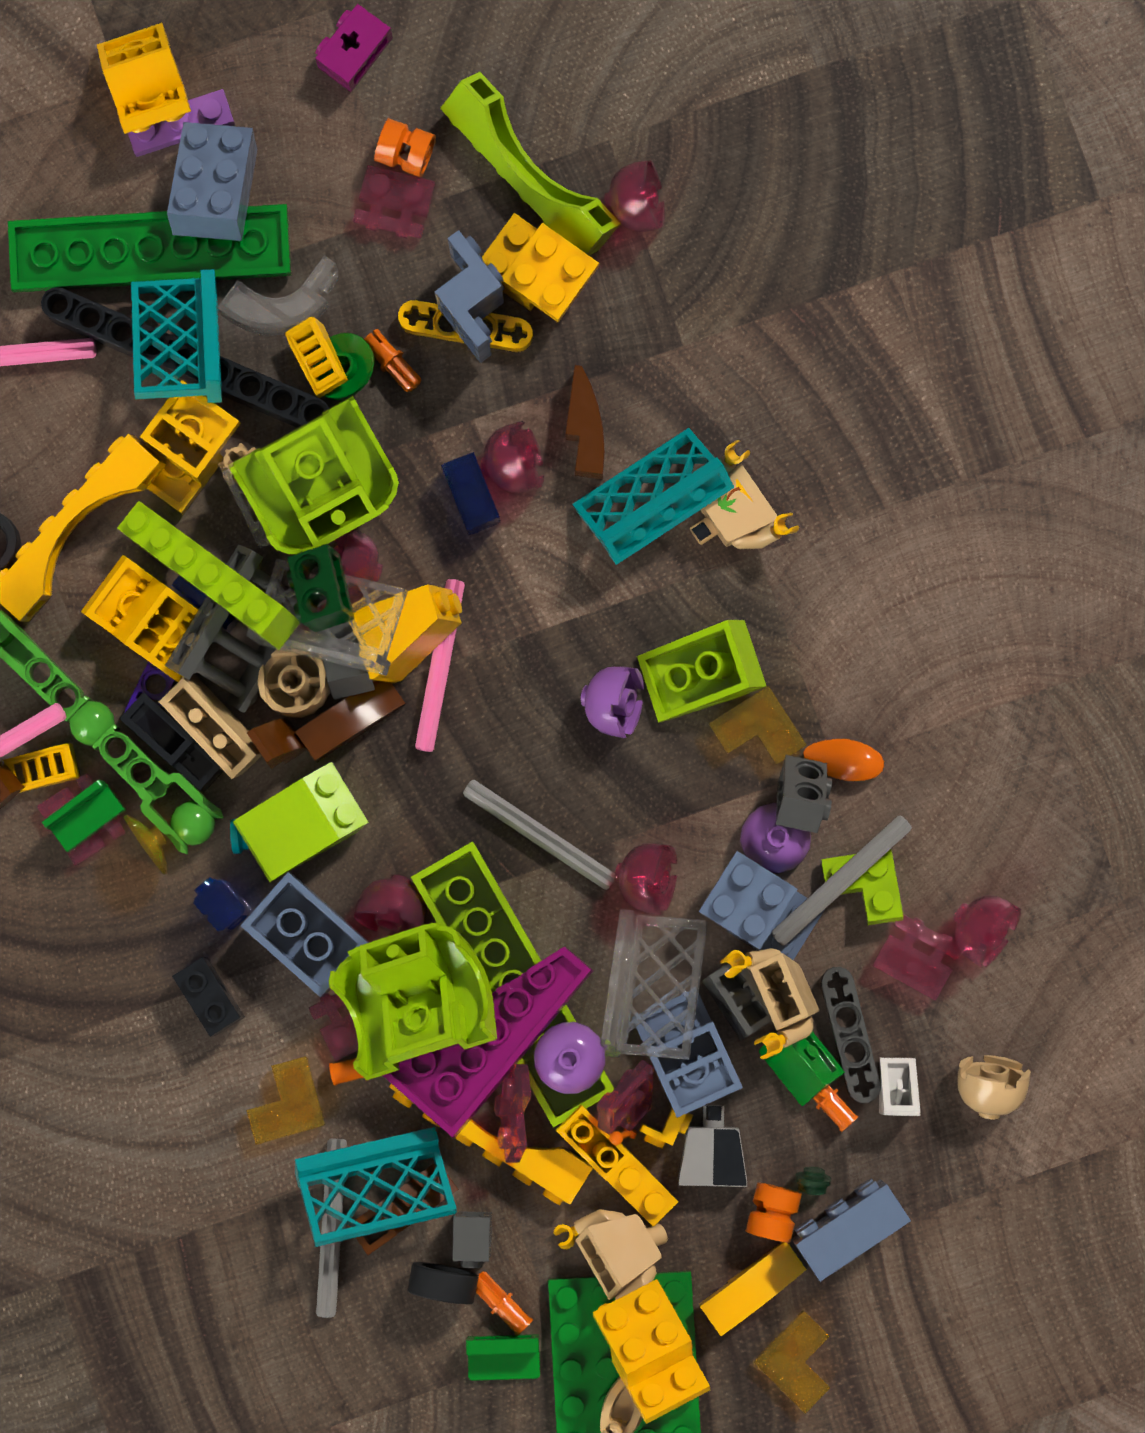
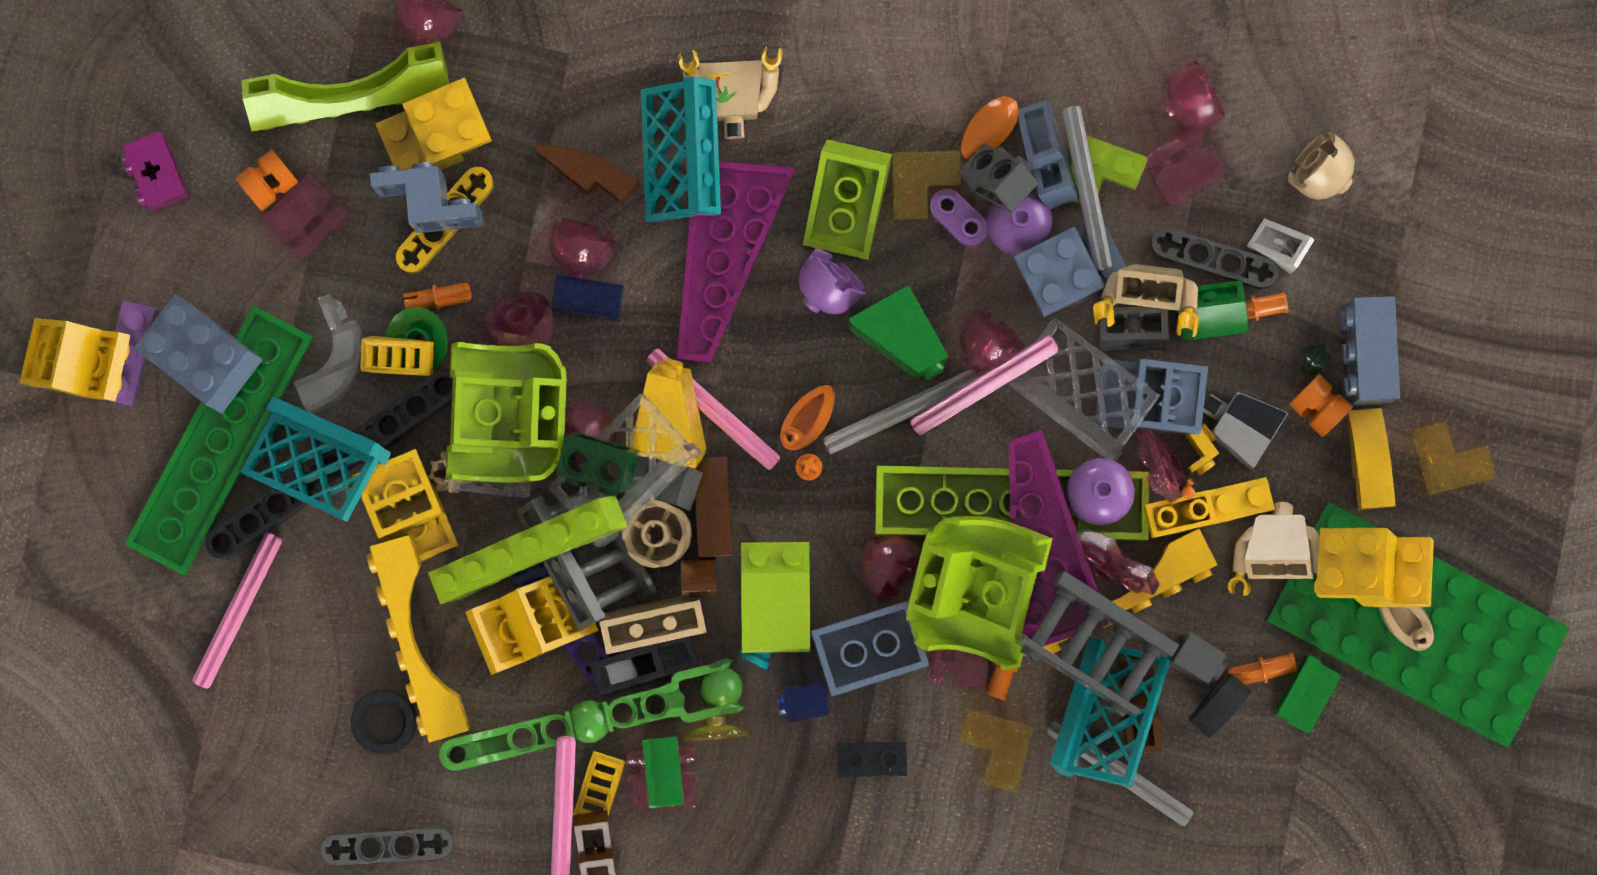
camera: 65 degrees left, 0 degrees up
(413, 446) = (521, 320): none -> clear pink cylinder
(436, 781) = (808, 467): none -> orange axle
(456, 1119) = (1125, 628): none -> dark grey fence
(482, 754) = (807, 418): none -> orange arm
(587, 590) = (724, 252): none -> magenta wing
(606, 894) = (984, 385): none -> bright pink axle
(607, 792) = (901, 334): none -> green slope
(746, 780) = (957, 218): none -> medium lavender plate
(850, 826) = (1047, 155): none -> sand blue slope

